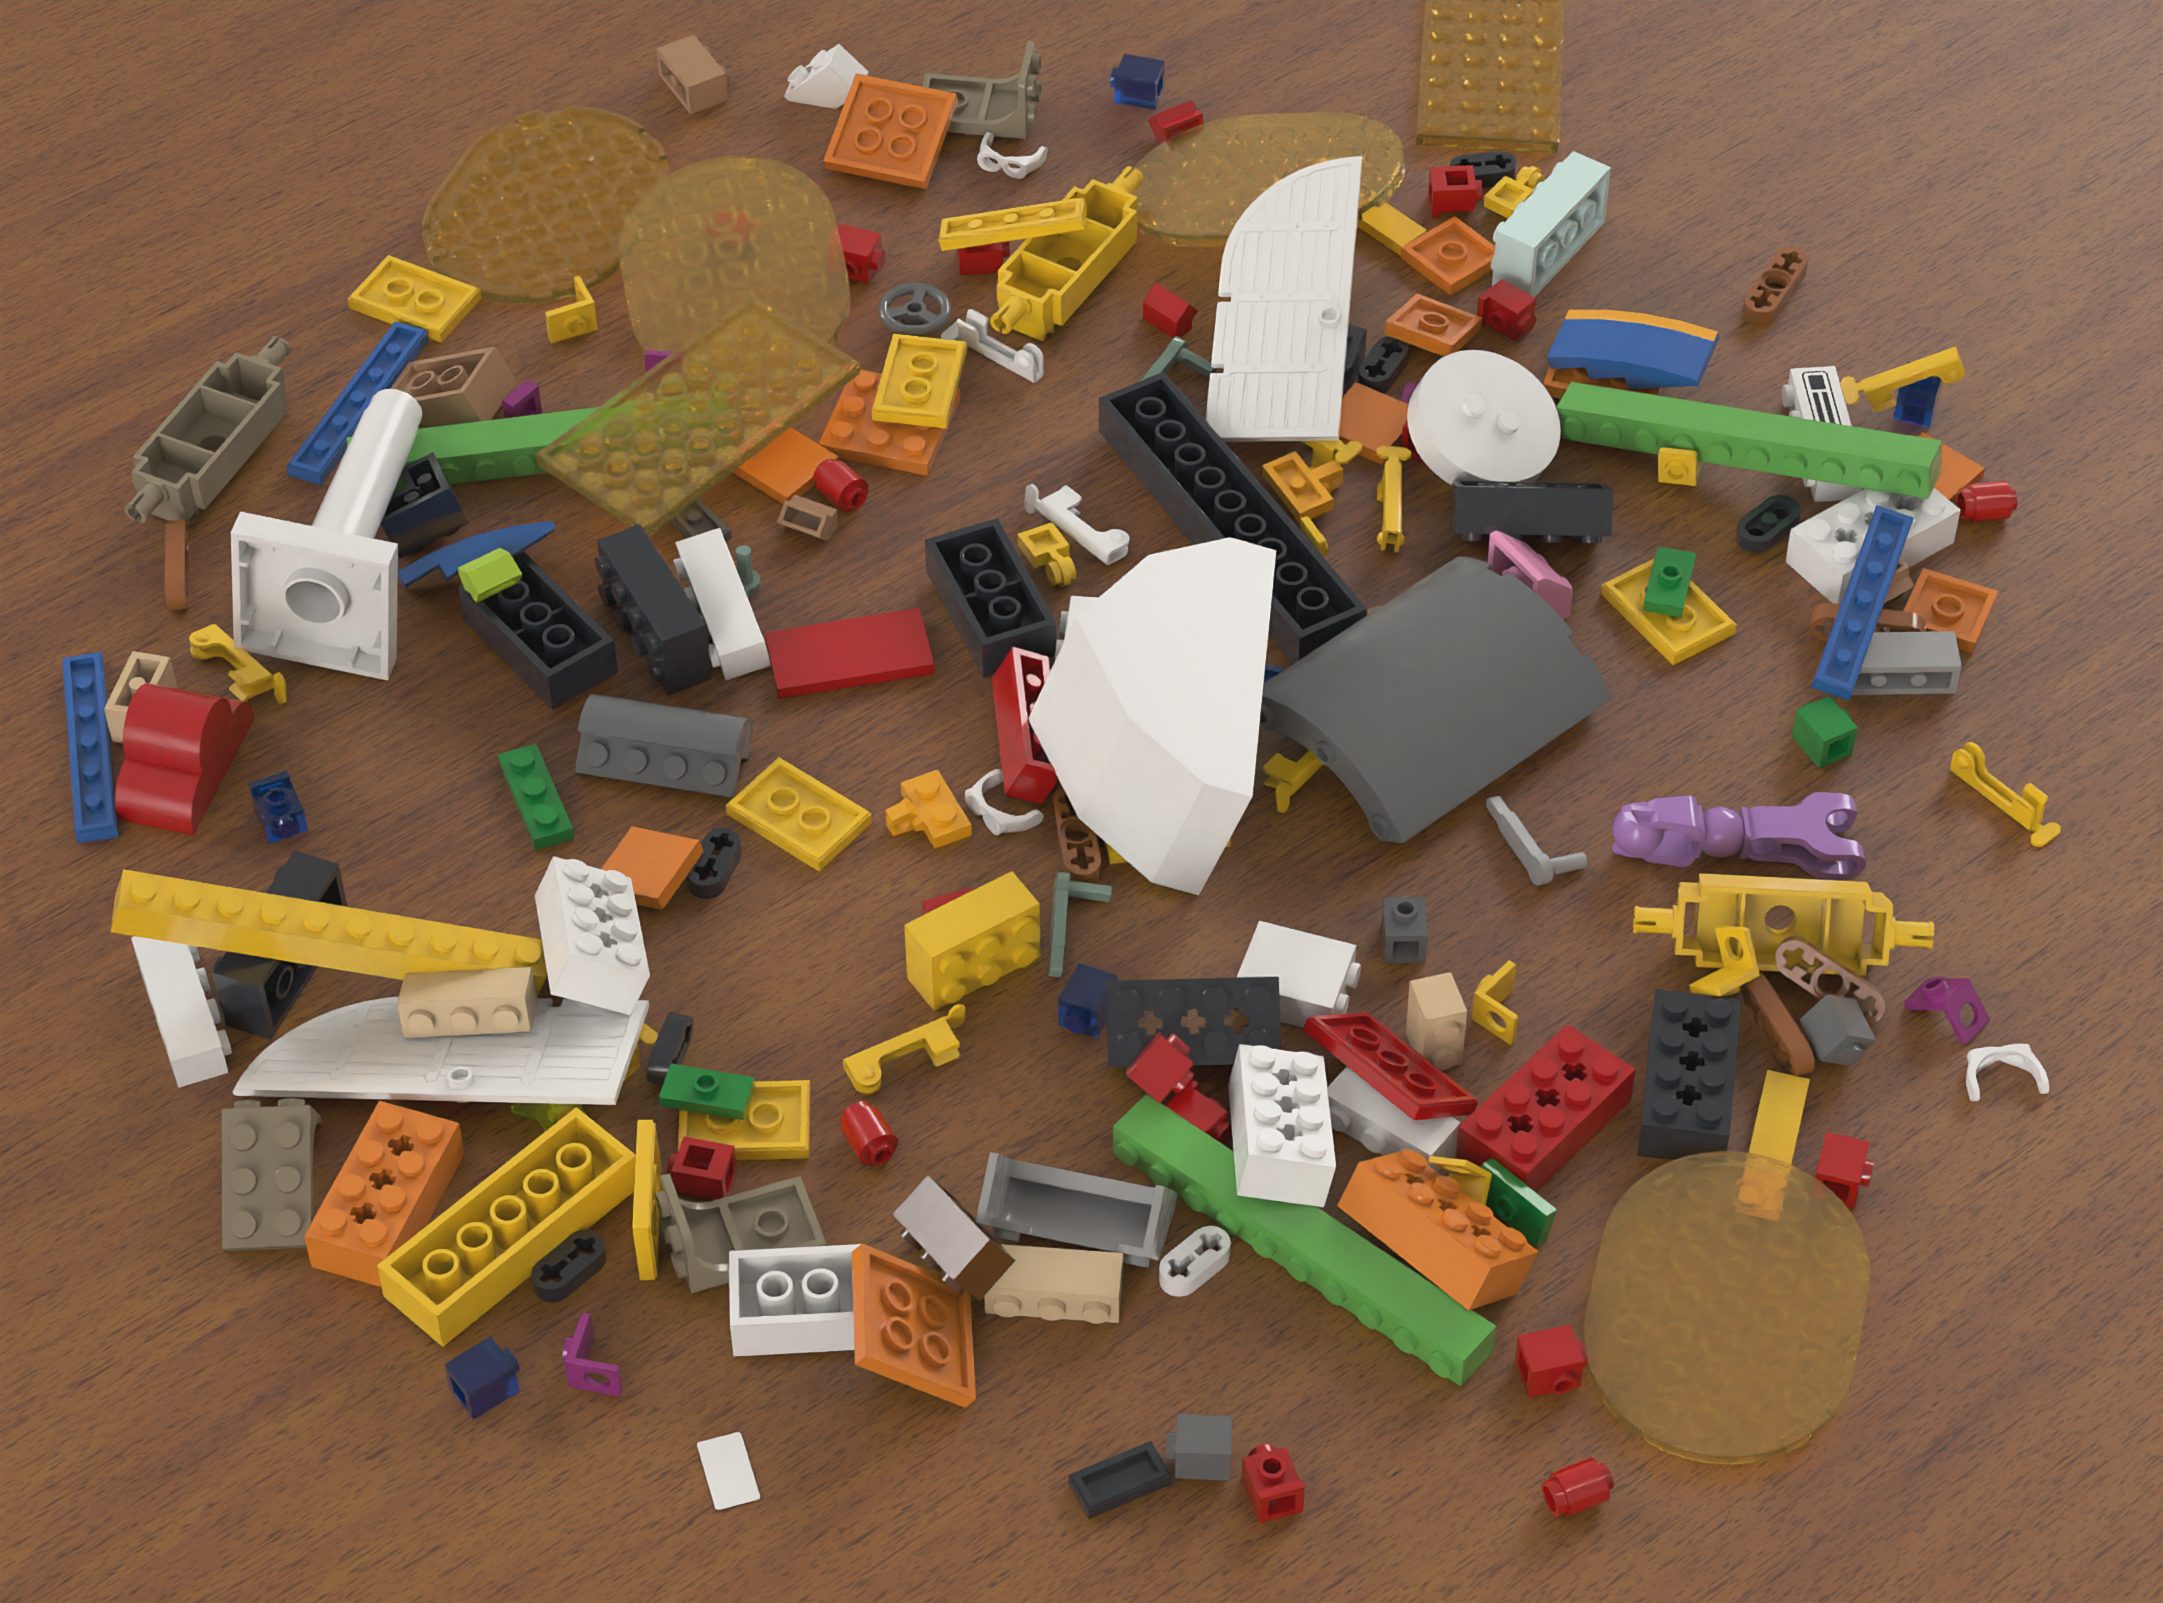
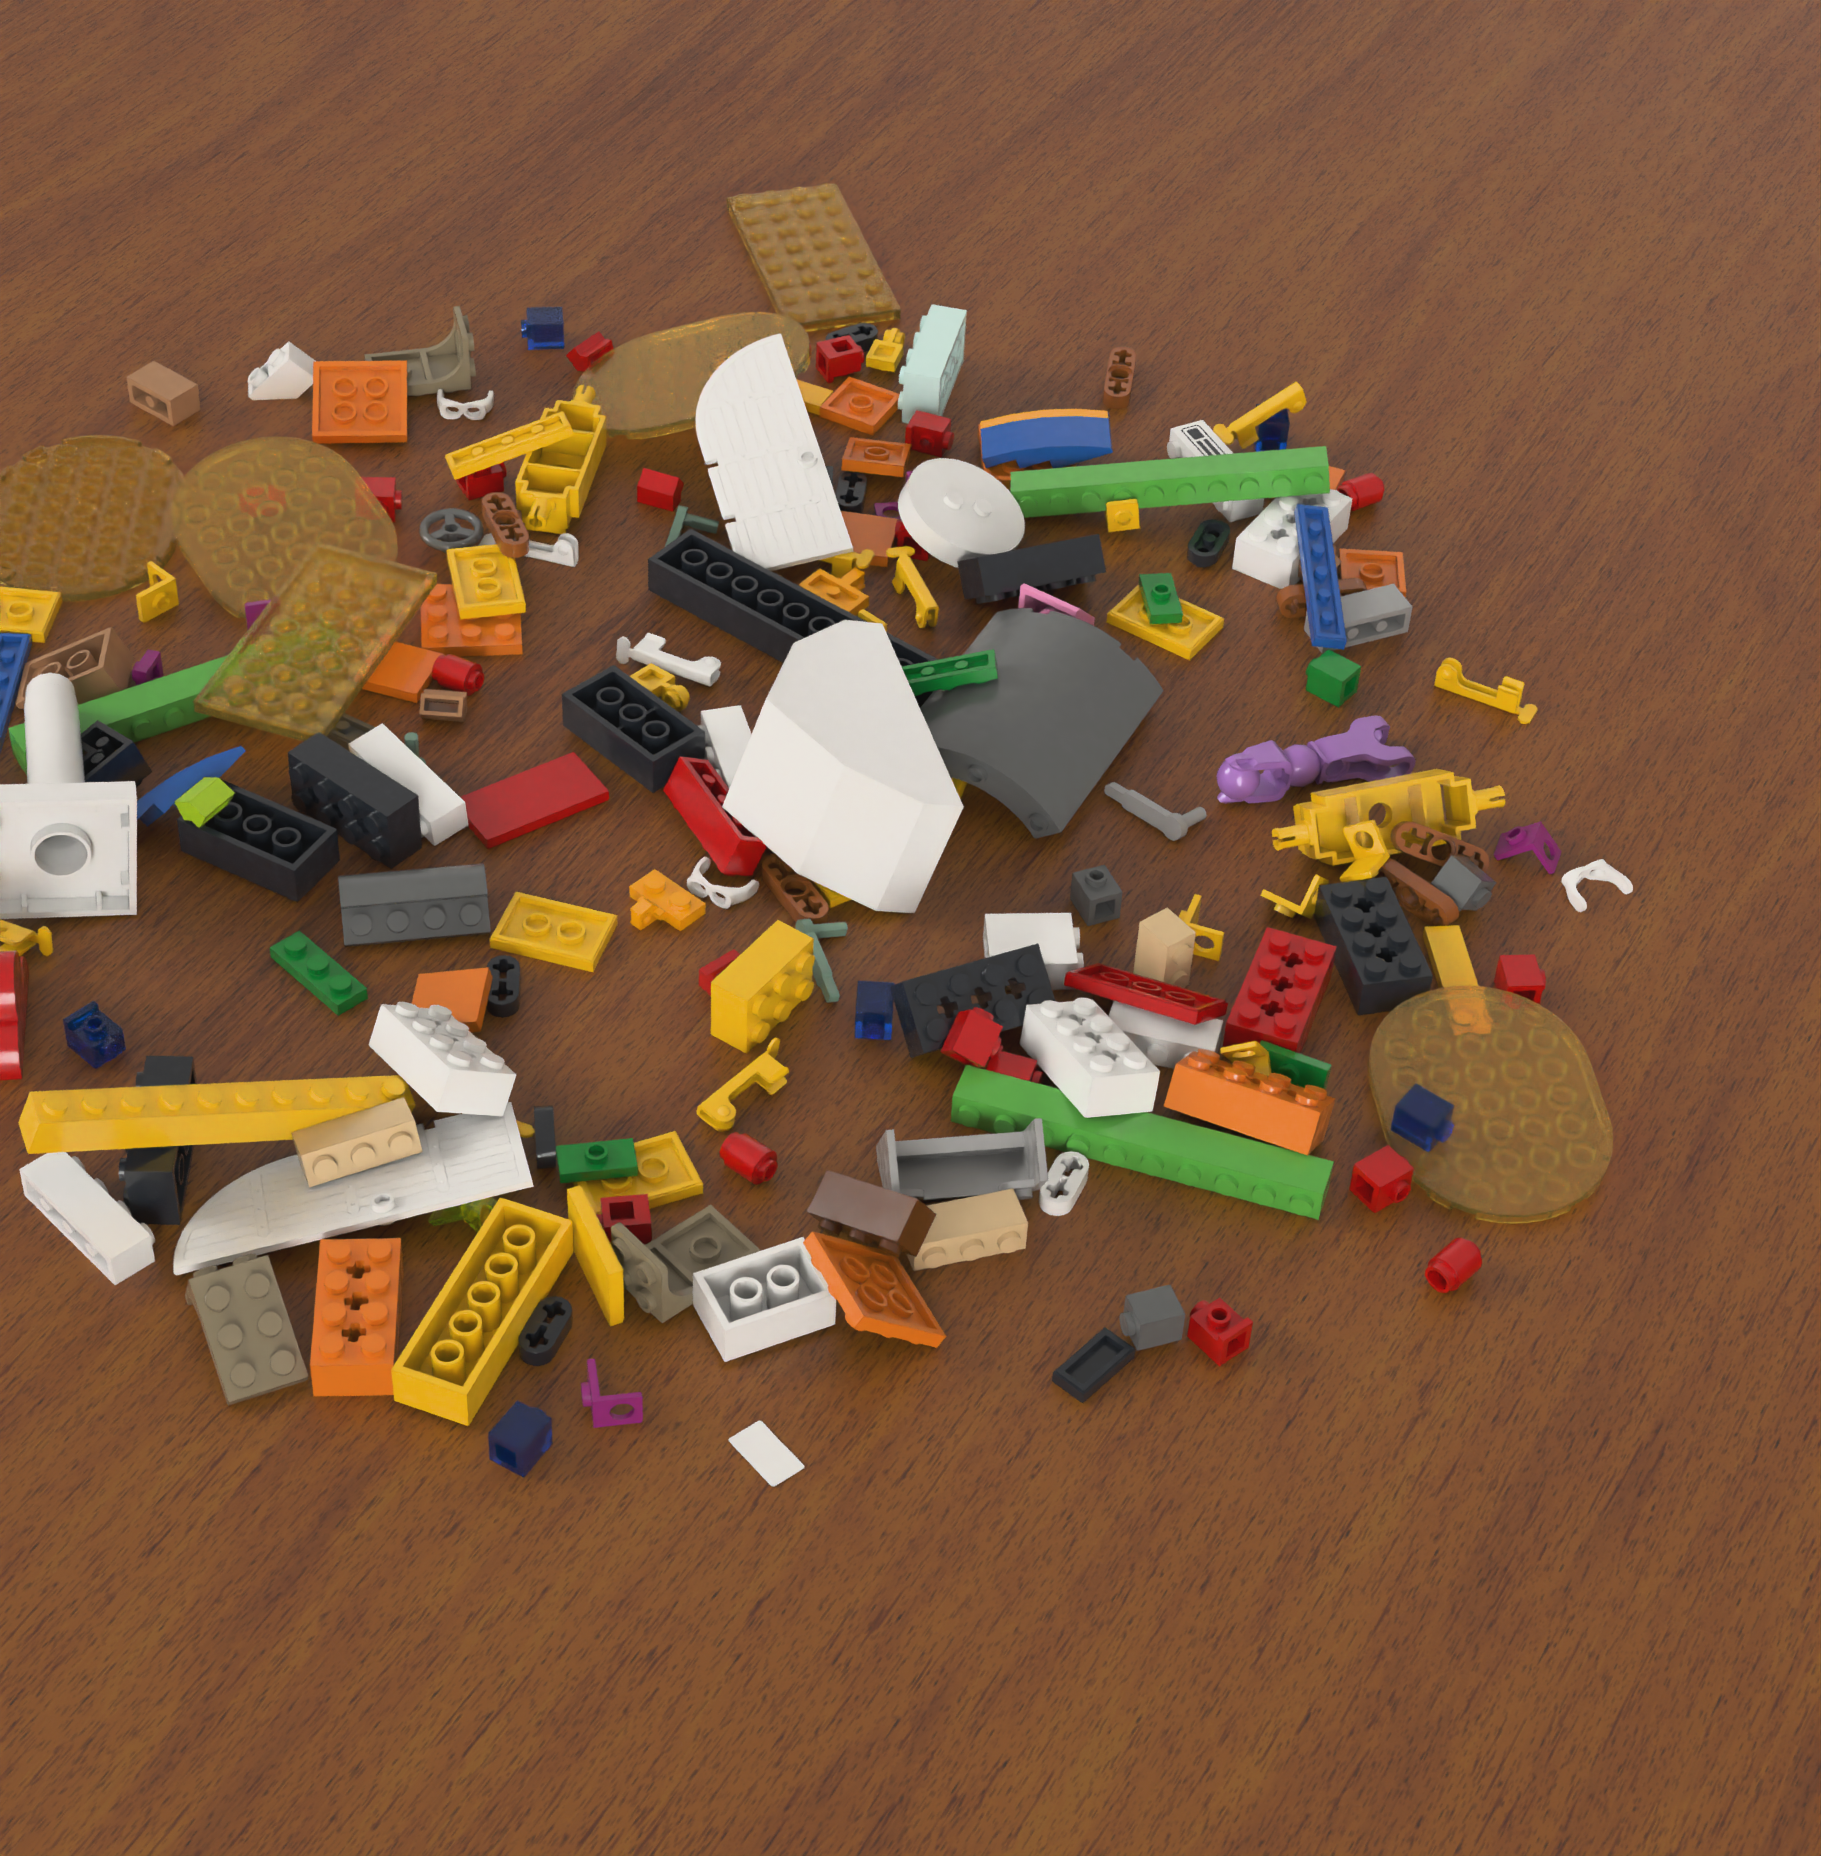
camera: 25 degrees left, 5 degrees down
(973, 329) = (505, 533): none -> dark orange beam
(1347, 621) = (952, 672): none -> green plate
(1622, 1004) = (1308, 904): none -> yellow bracket
(1626, 1304) = (1423, 1118): none -> clear blue brick

